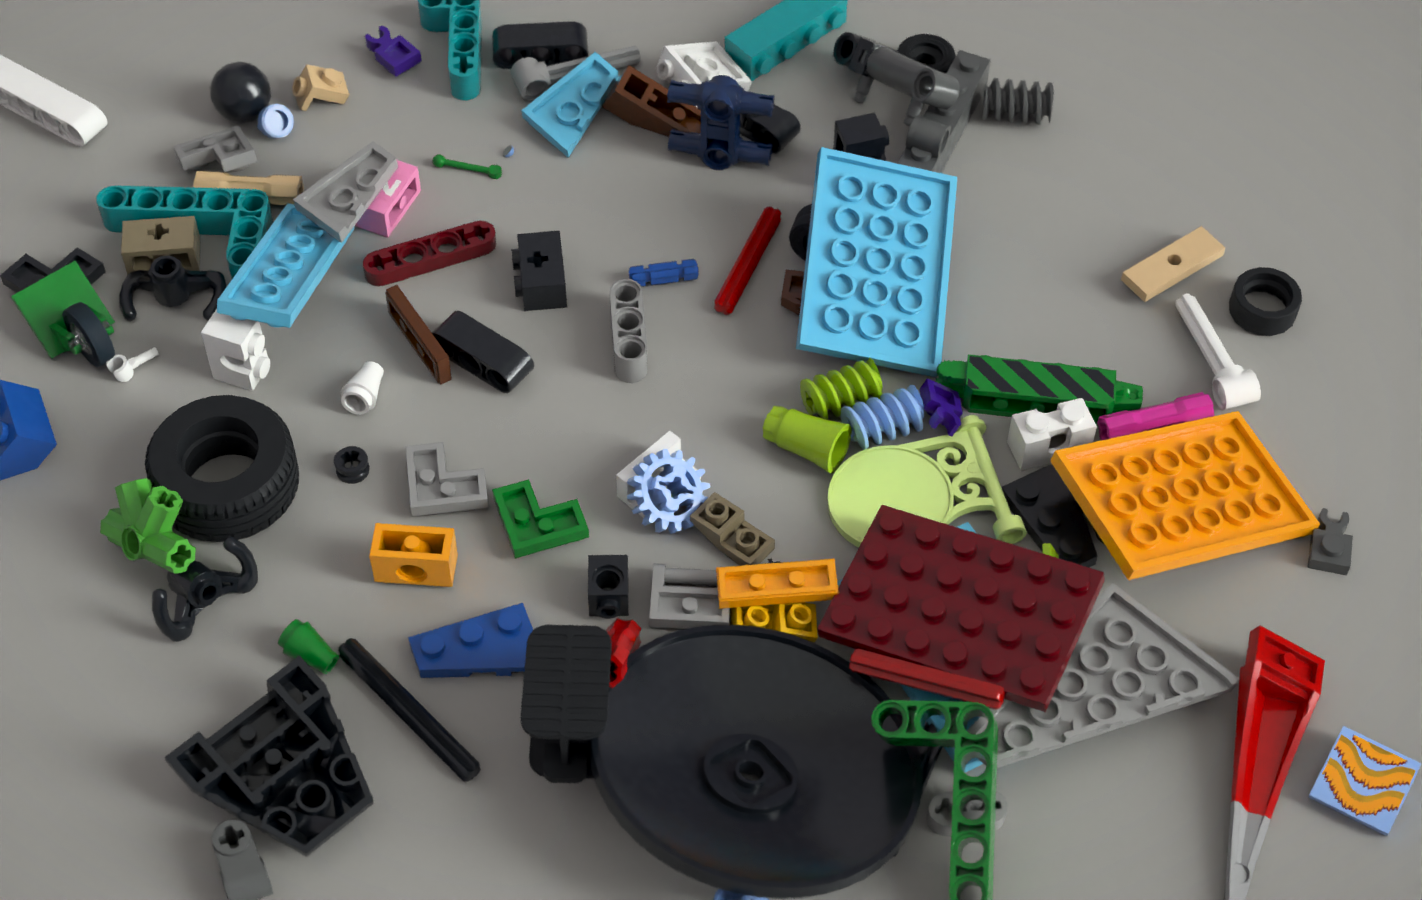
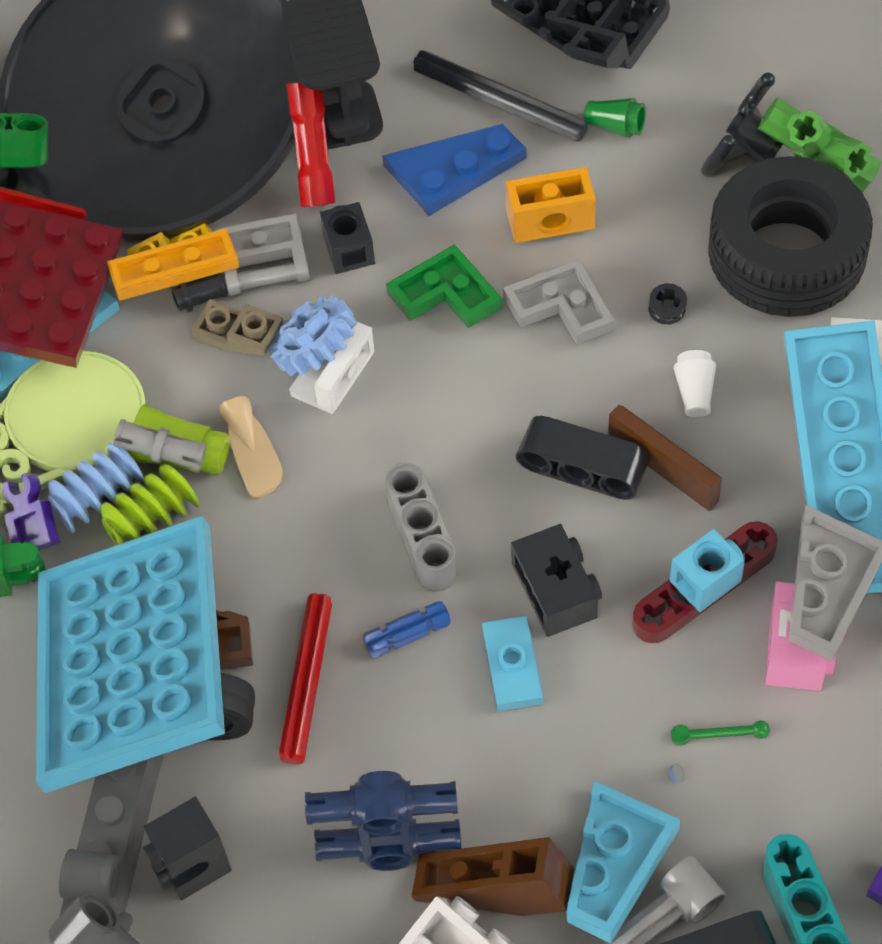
camera: 170 degrees right, 5 degrees up
(428, 232) = (704, 586): none -> medium azure brick
(594, 236) = (512, 663): none -> medium azure plate
(746, 435) = (251, 448): none -> tan piece
(777, 130) = (326, 895): black piece -> none
(843, 411) = (160, 445): none -> light grey pin

